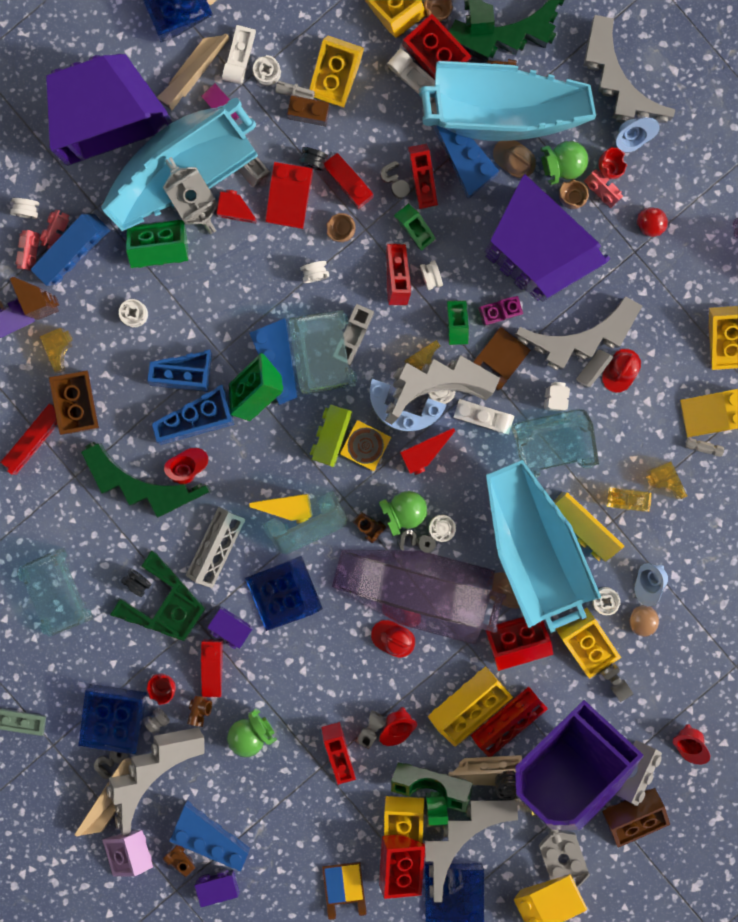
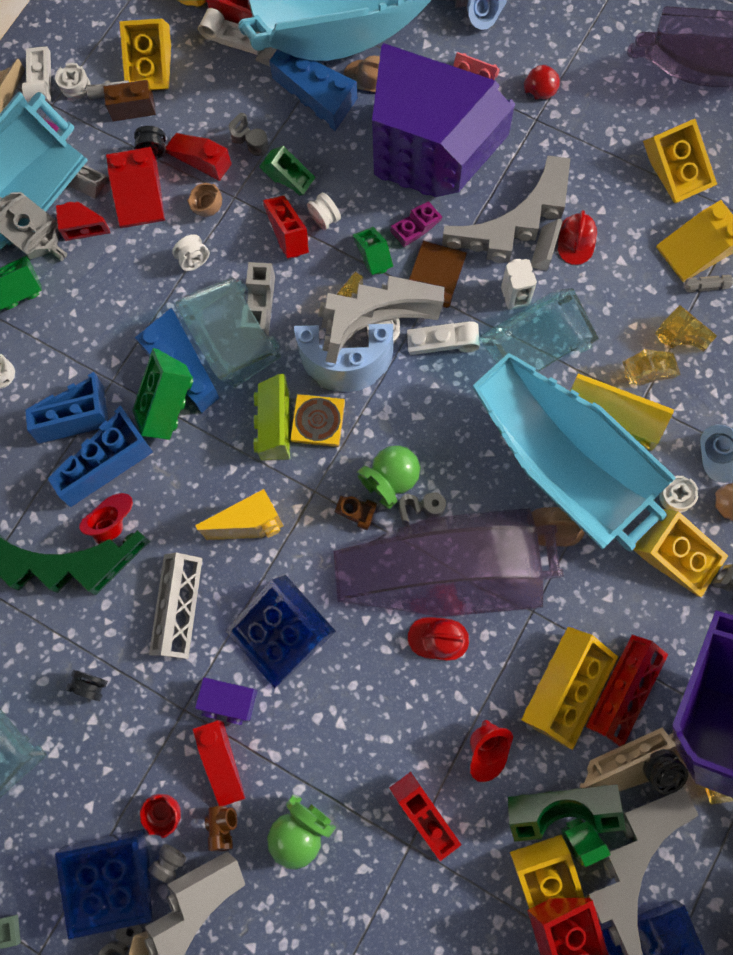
camera: 20 degrees left, 15 degrees down
(177, 613) = (151, 709): dark green wing -> none
(329, 521) = (282, 536): clear light blue windscreen -> none
(367, 735) = (454, 776): dark grey leg -> none
(423, 175) = (276, 118): red slope -> none
(423, 453) = (385, 400): red slope -> none
(442, 528) = (445, 479): white wheel -> none
(518, 644) = (596, 582): red slope -> none
(565, 161) = (427, 42): bright green tile -> none
(612, 163) = (473, 40): red hair -> none

